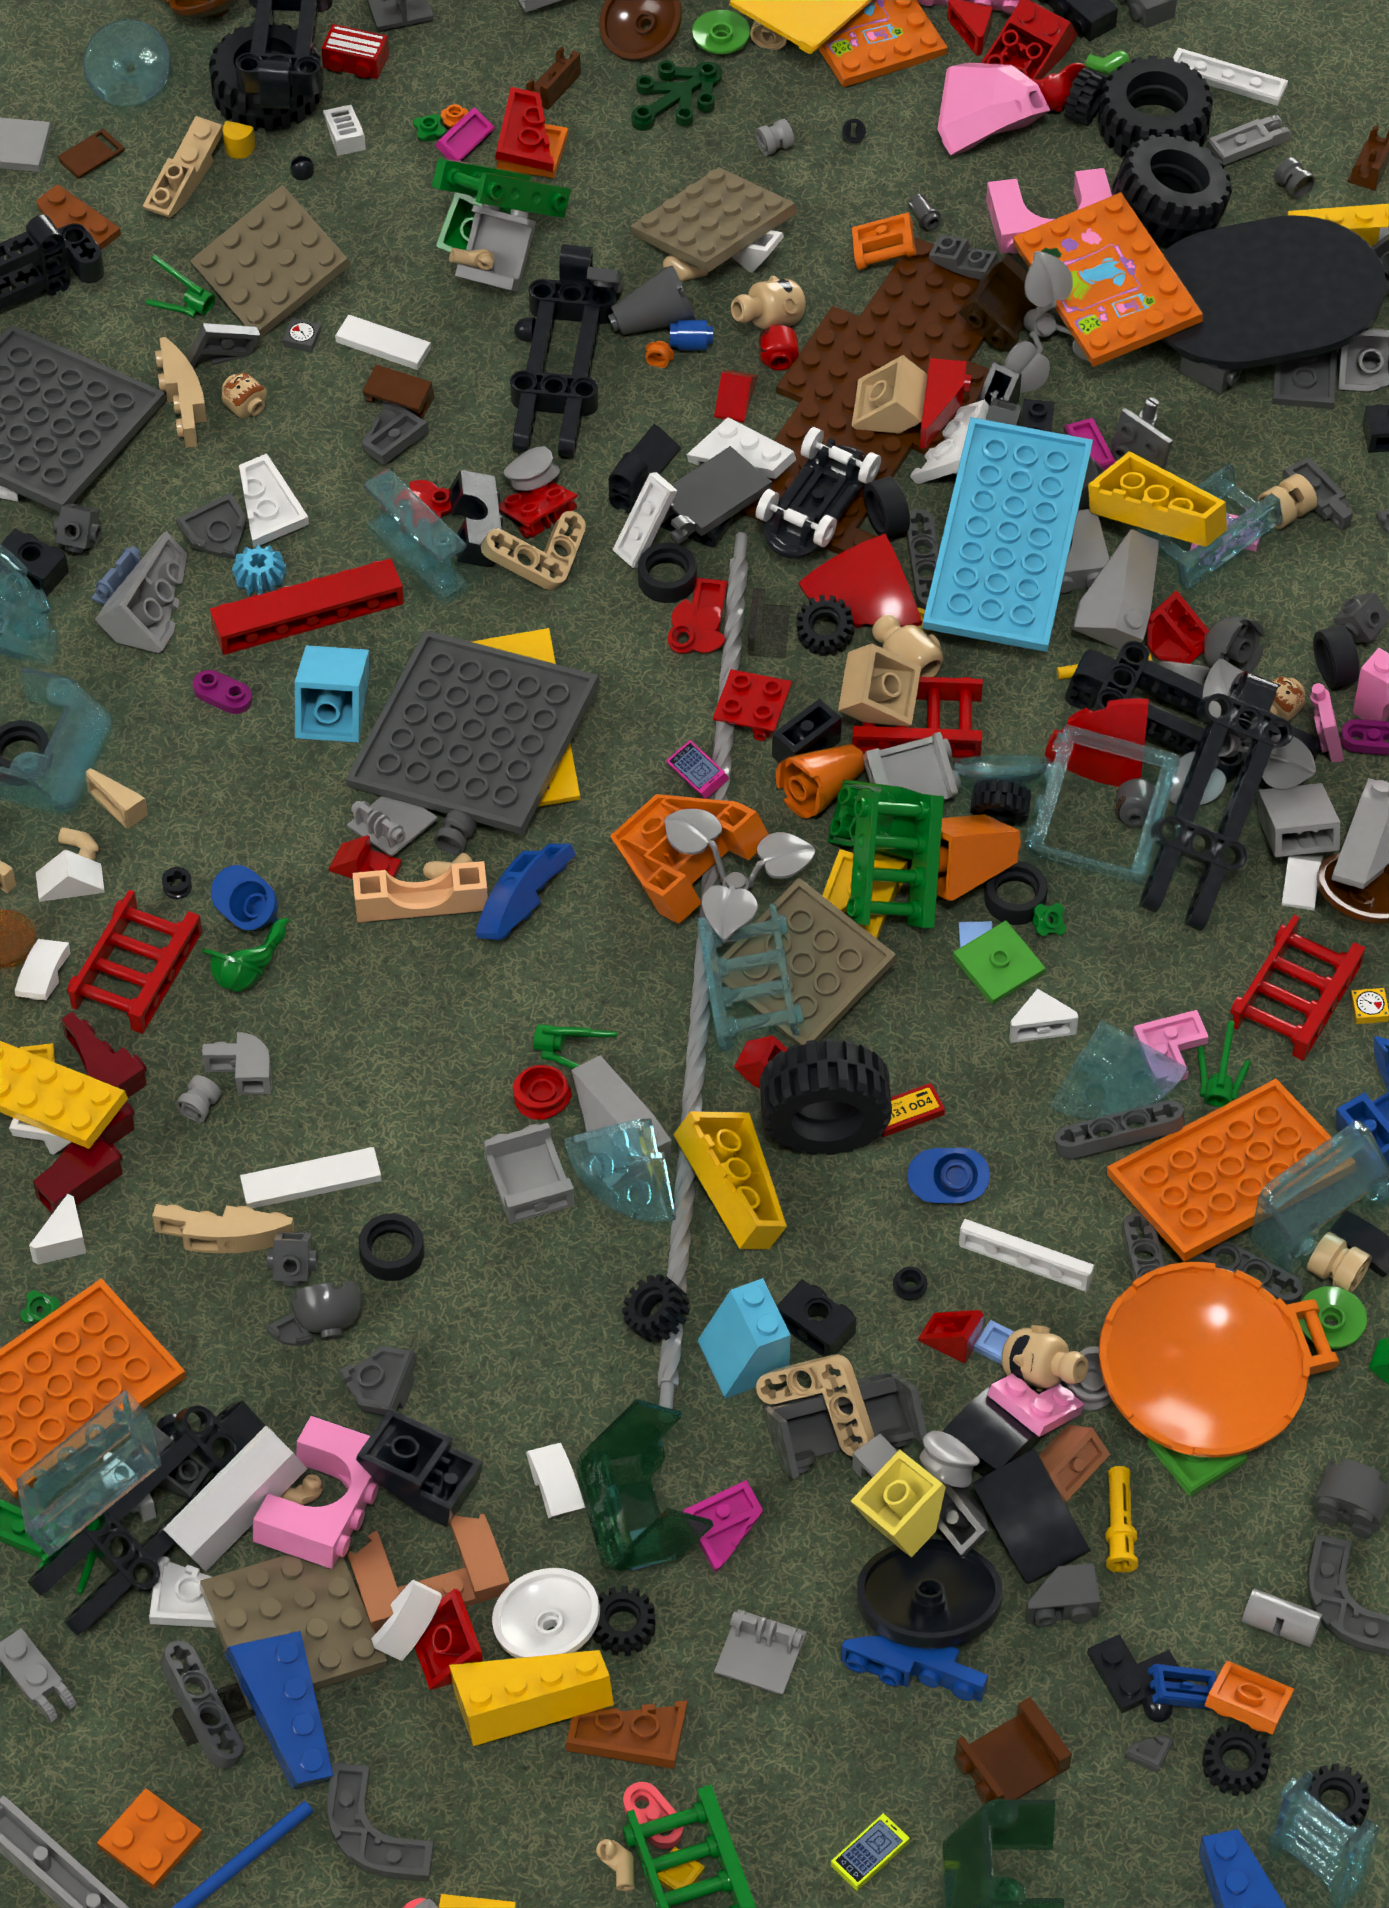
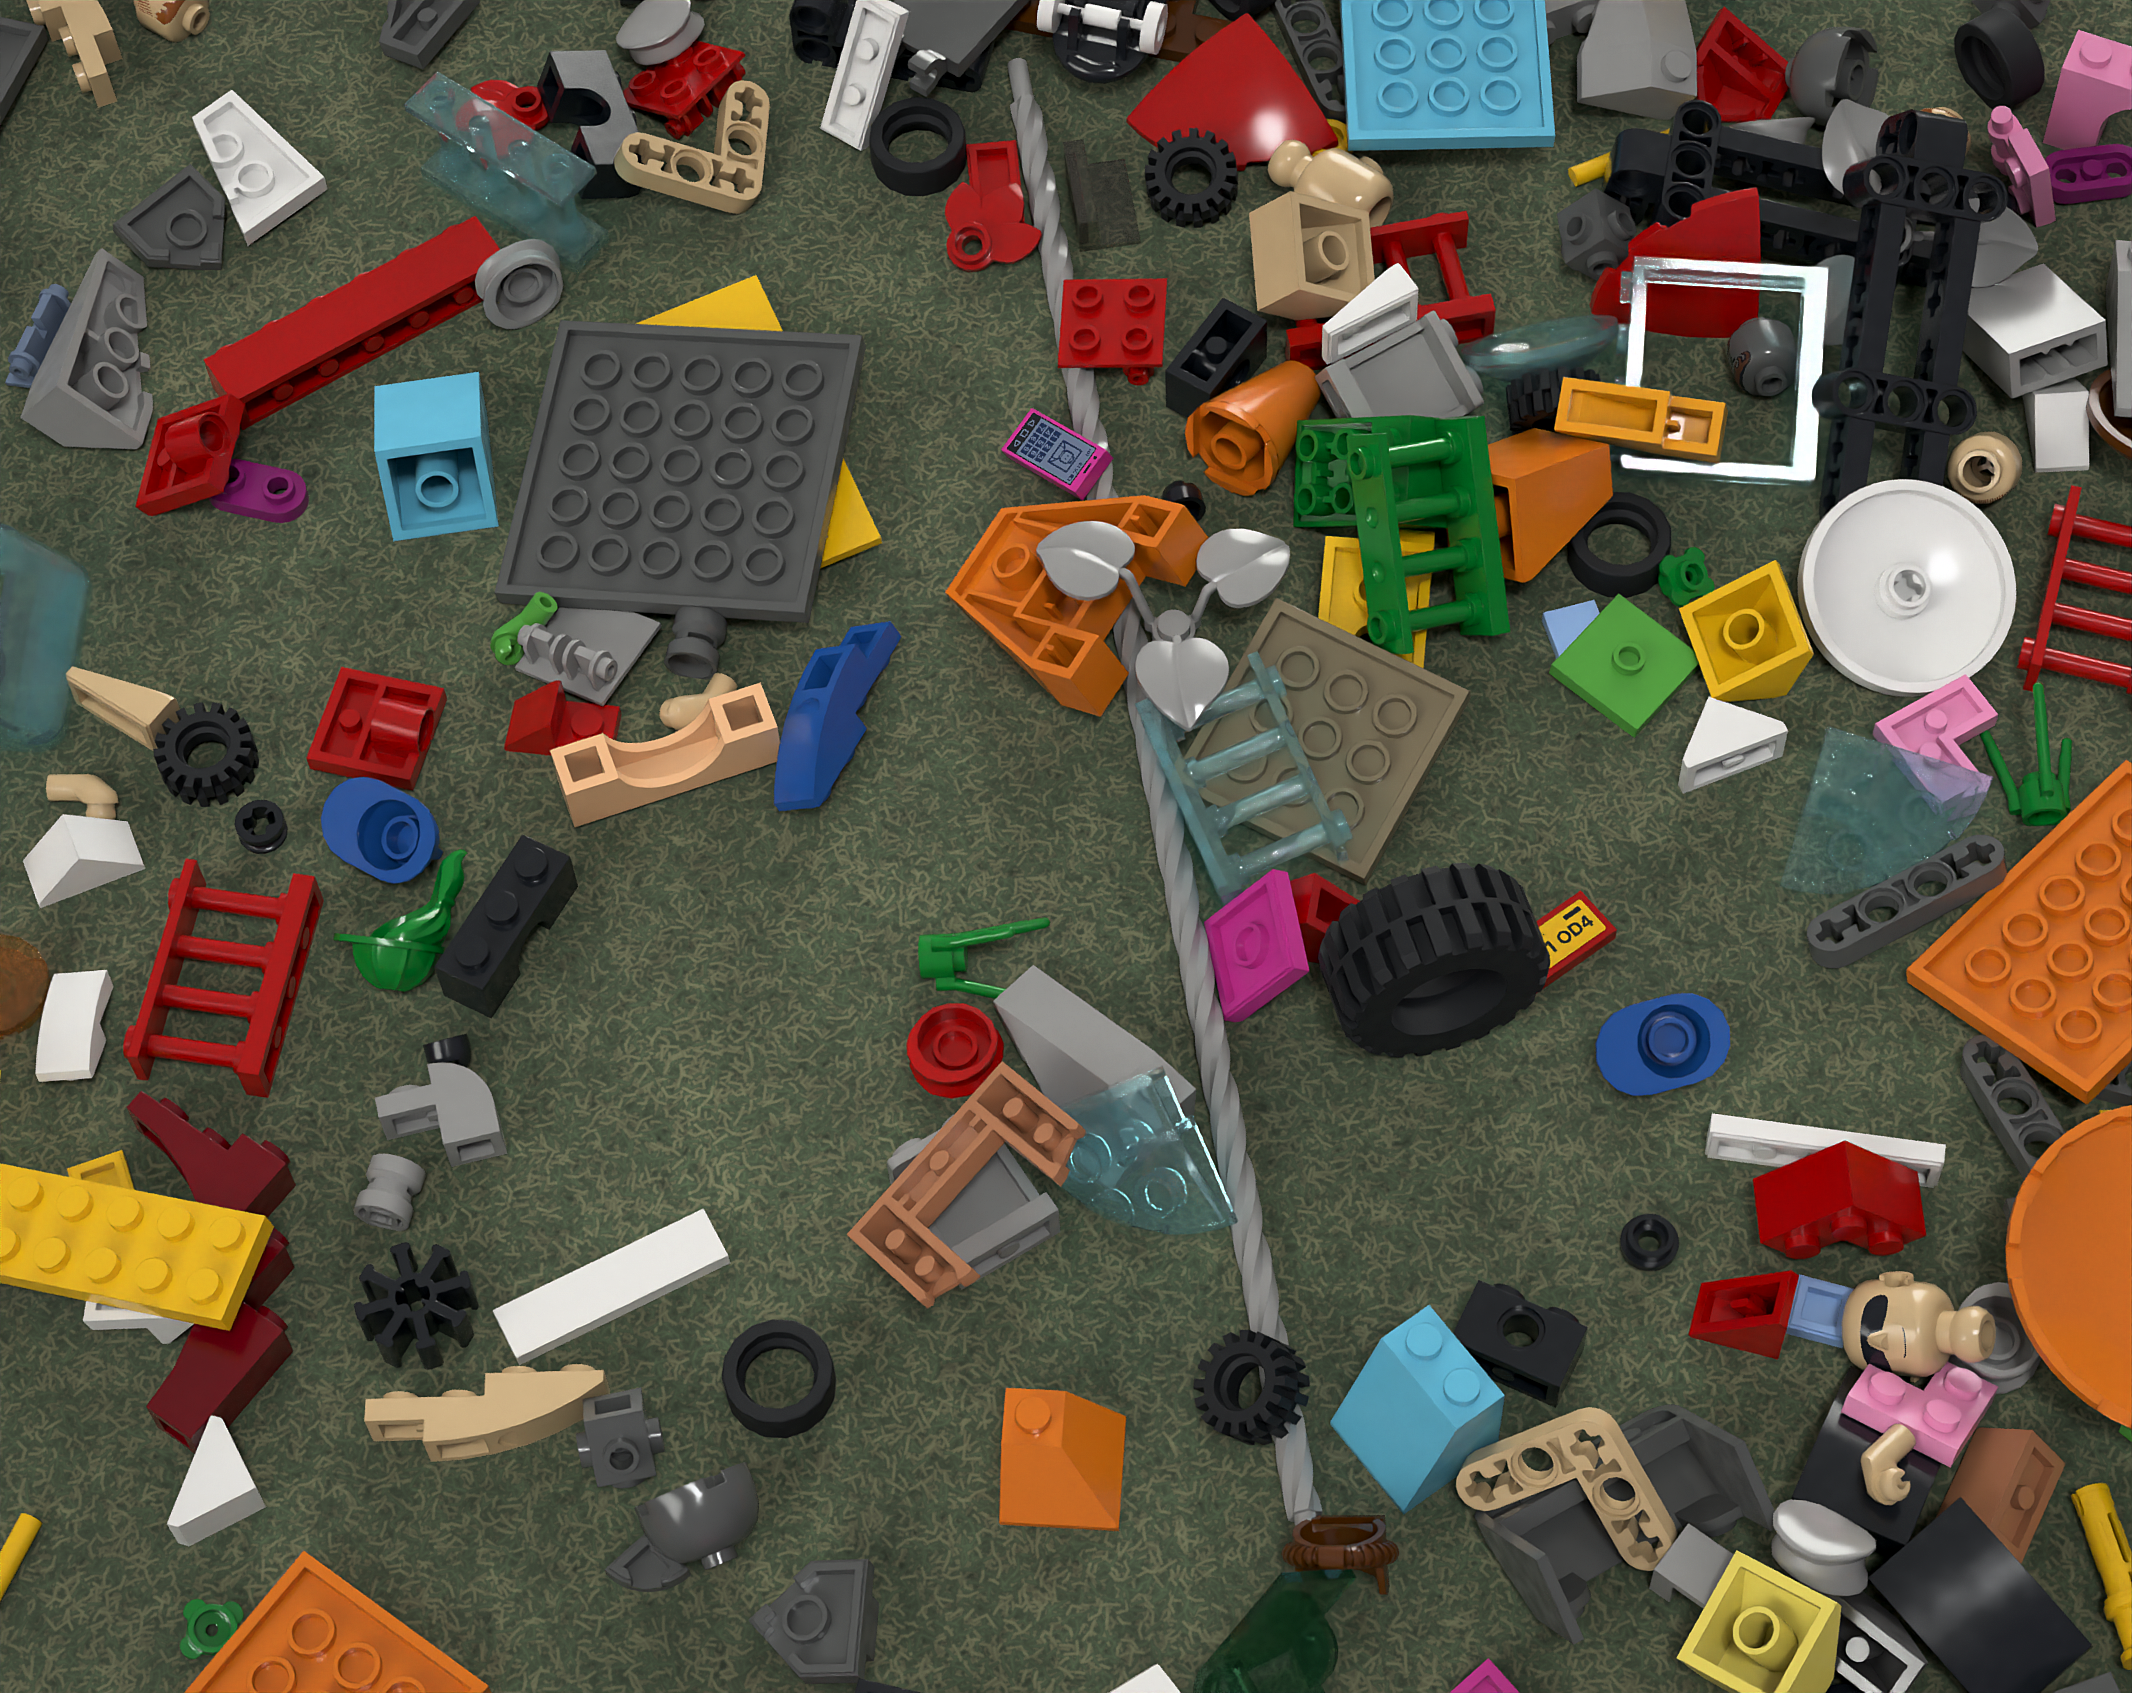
camera: 10 degrees left, 5 degrees up
(155, 820) = (201, 728): none -> black tyre
(188, 662) = (190, 455): none -> red plate
(211, 1162) = (392, 1318): none -> black gear
(254, 1028) = (448, 1050): none -> black hinge
(257, 841) = (377, 728): none -> red plate
(259, 570) = (267, 279): medium azure gear -> none
(285, 980) = (486, 950): none -> black arch
(344, 807) = (504, 639): none -> bright green arm
(407, 603) = (520, 283): none -> light grey piece
(537, 1325) = (1060, 1461): none -> orange slope
(554, 1126) = (996, 1113): none -> nougat wedge
(692, 1404) = (1343, 1543): none -> reddish brown piece
(730, 1070) = (1256, 946): none -> dark pink tile
(734, 1174) = (1315, 1125): yellow wedge -> none
(769, 811) = (1187, 495): none -> black hinge
(903, 727) = (1372, 315): none -> white slope
(997, 1425) = (1880, 1465): none -> tan arm
(1023, 1279) = (1839, 1197): none -> red brick
(1045, 821) = (1642, 419): none -> light orange slope
(1056, 706) = (1595, 233): none -> dark grey brick
(1073, 961) = (1748, 637): none -> yellow slope
(1176, 952) = (1906, 587): none -> white dish
(1247, 894) = (1967, 472): none -> tan head

